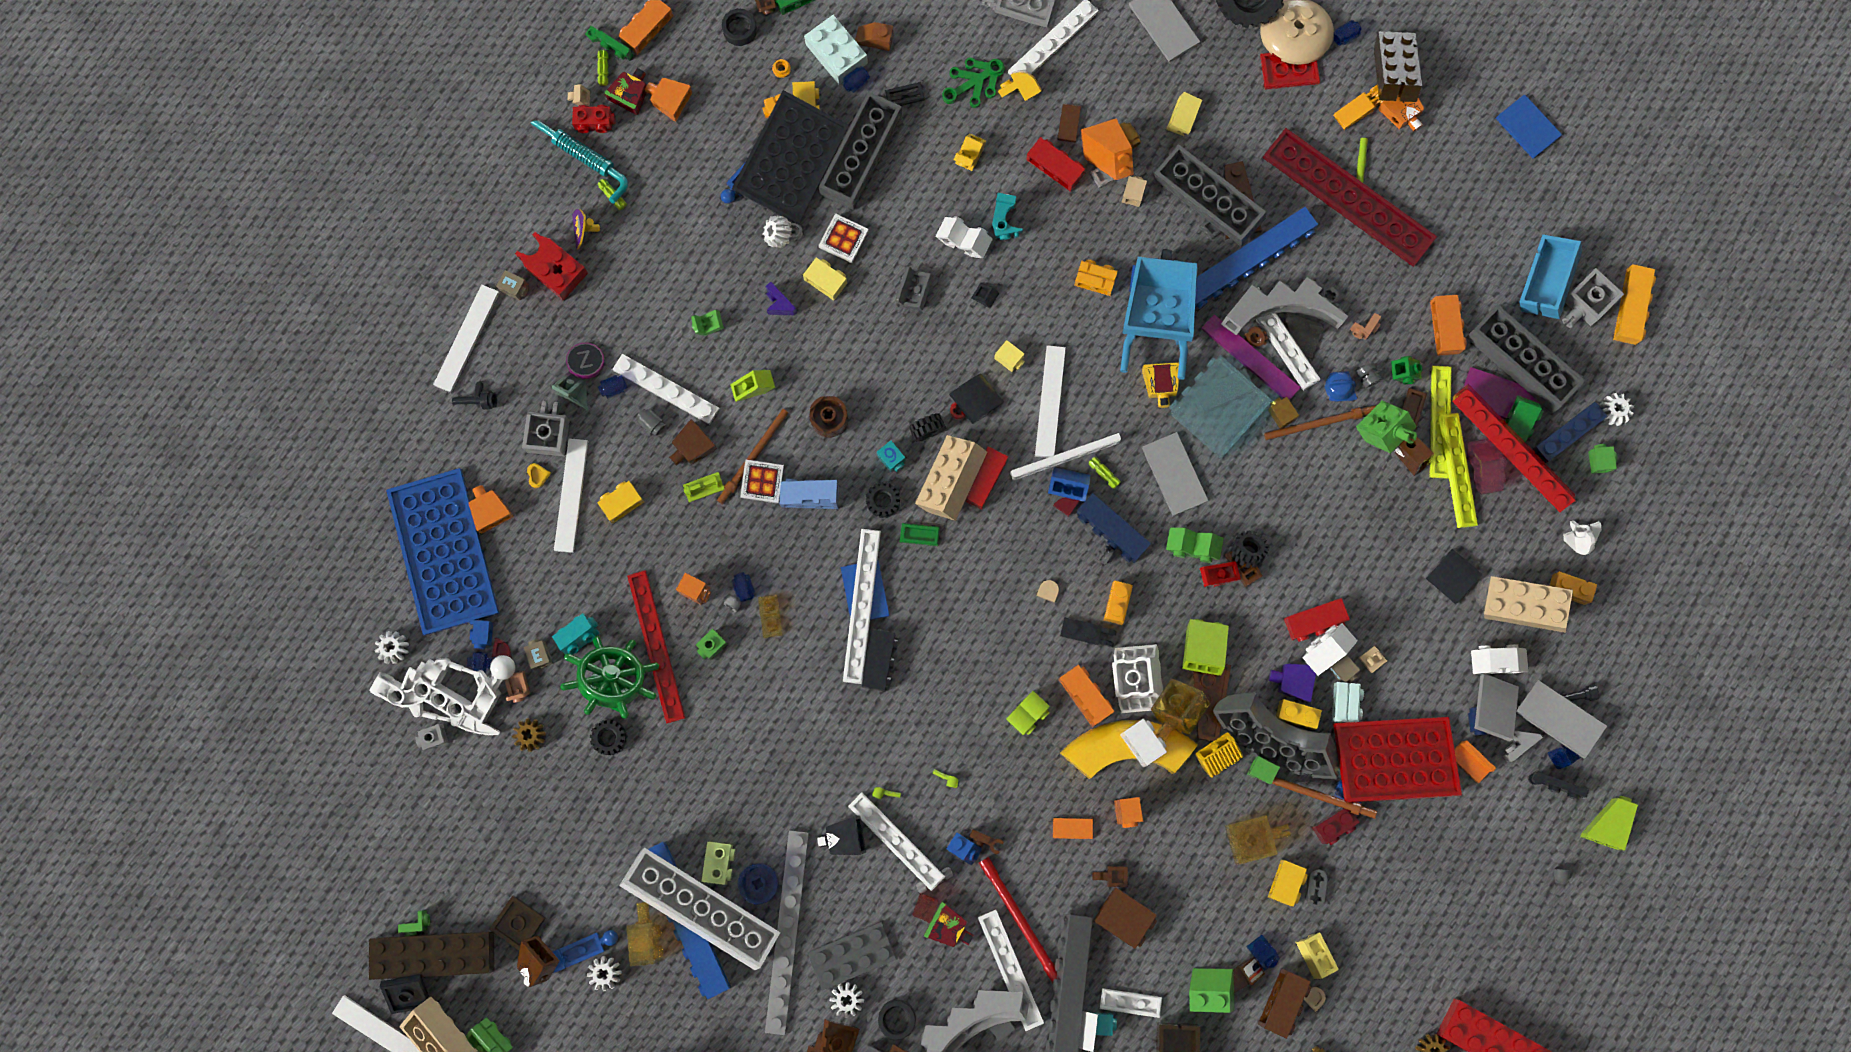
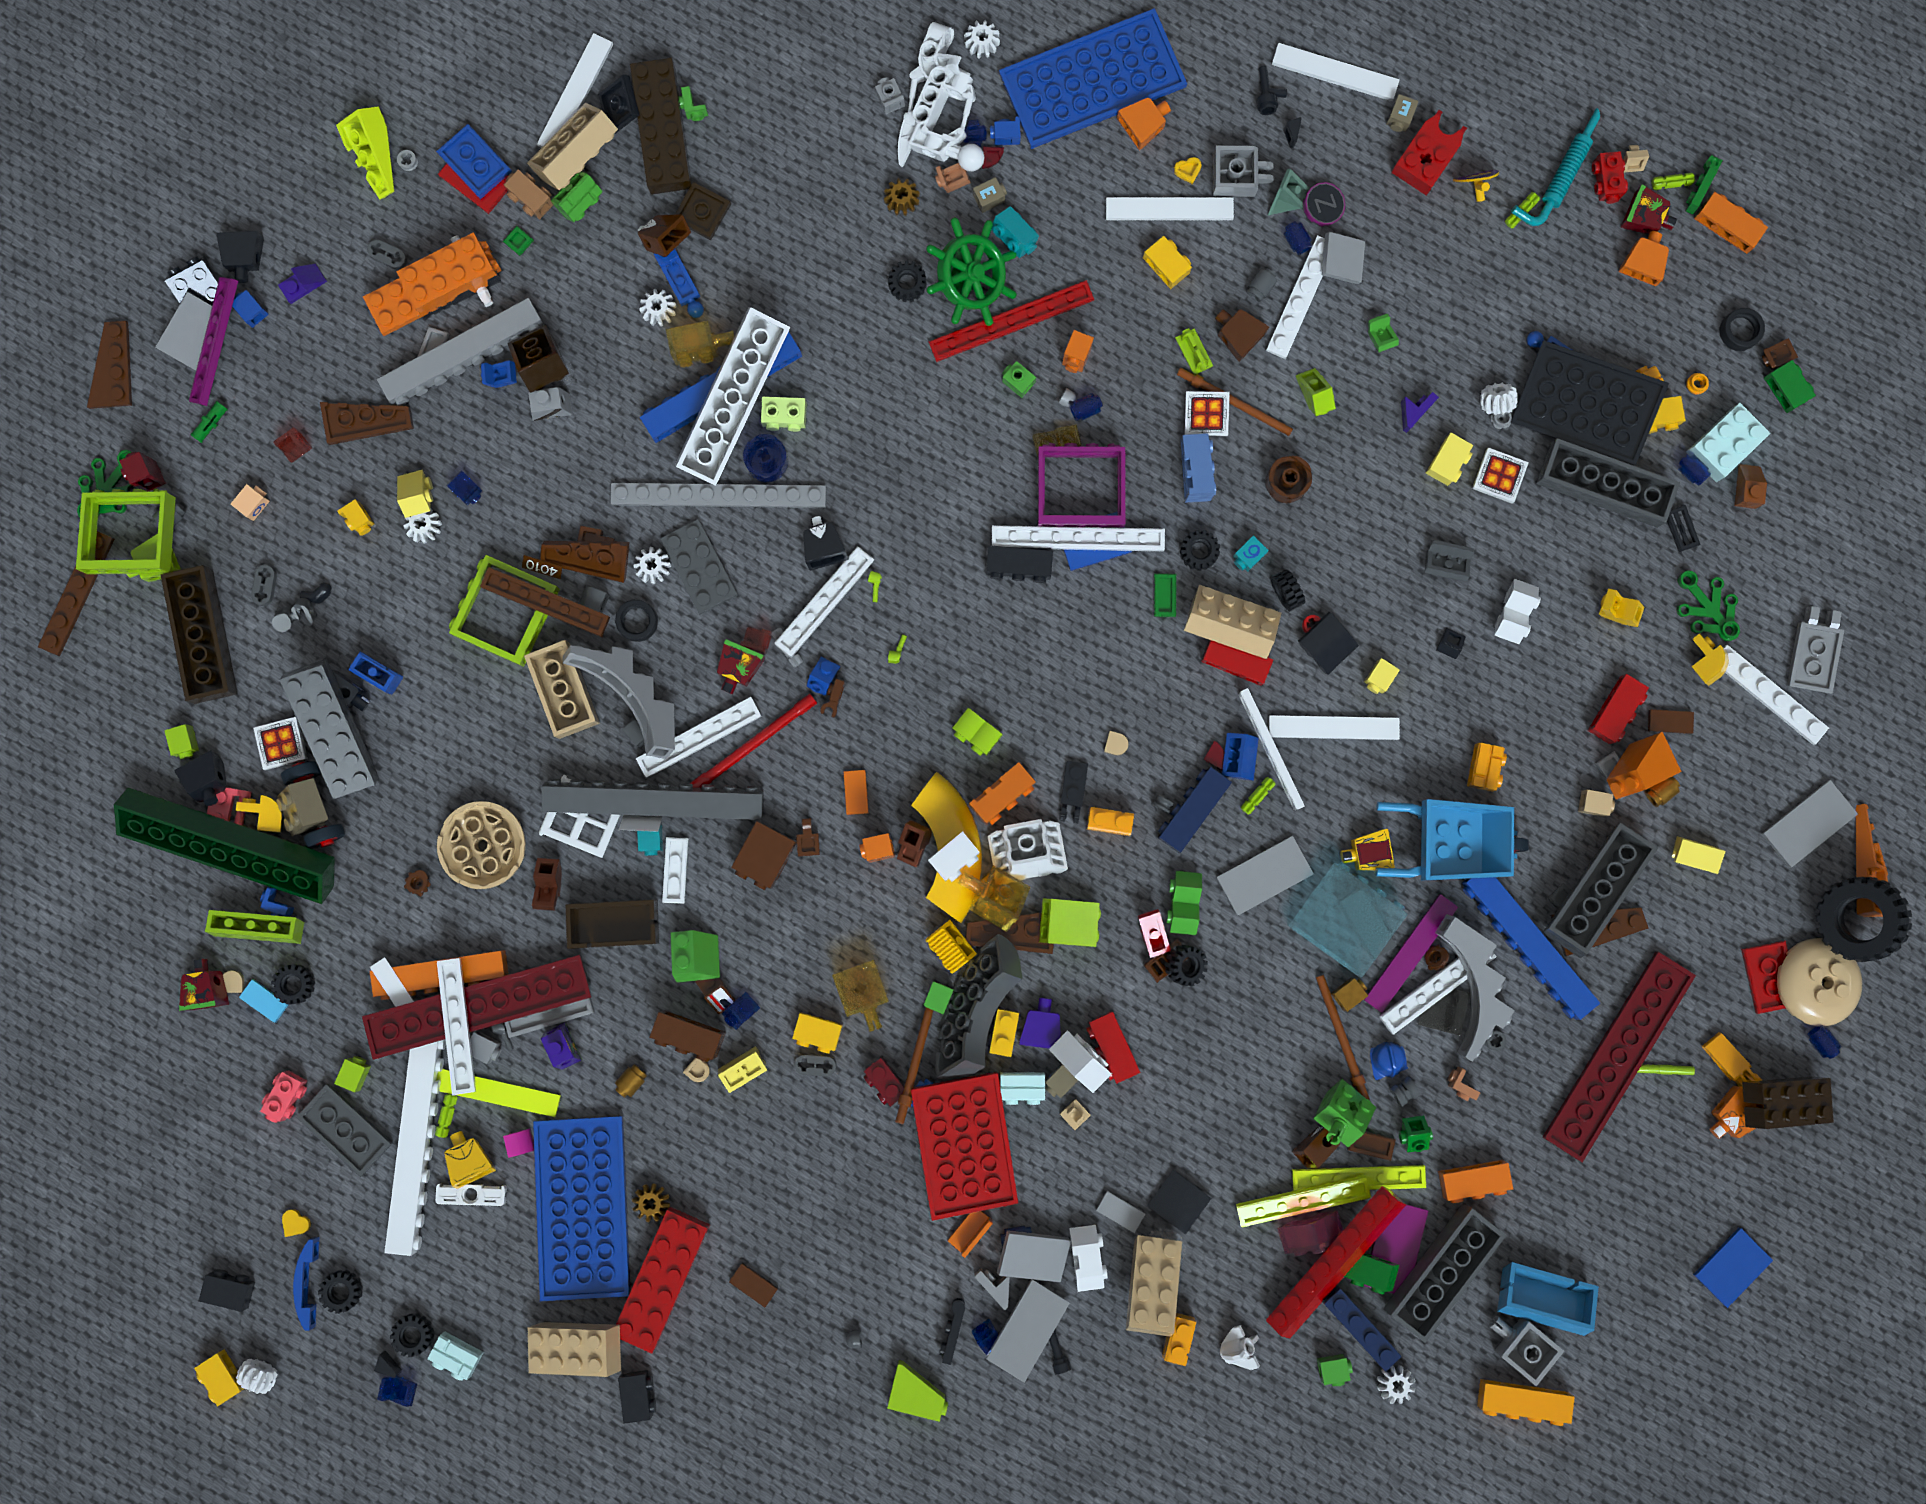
camera: 80 degrees right, 5 degrees up
(516, 381) = (1292, 130): none -> black slope
(636, 349) = (1343, 258): none -> light grey tile
(784, 586) = (1091, 450): none -> magenta window
(1004, 204) = (1559, 651): teal tile -> none
(1124, 779) = (913, 840): none -> copper brick
(1459, 628) = (1120, 1211): none -> light grey tile
(1510, 963) = (753, 1285): none -> reddish brown tile

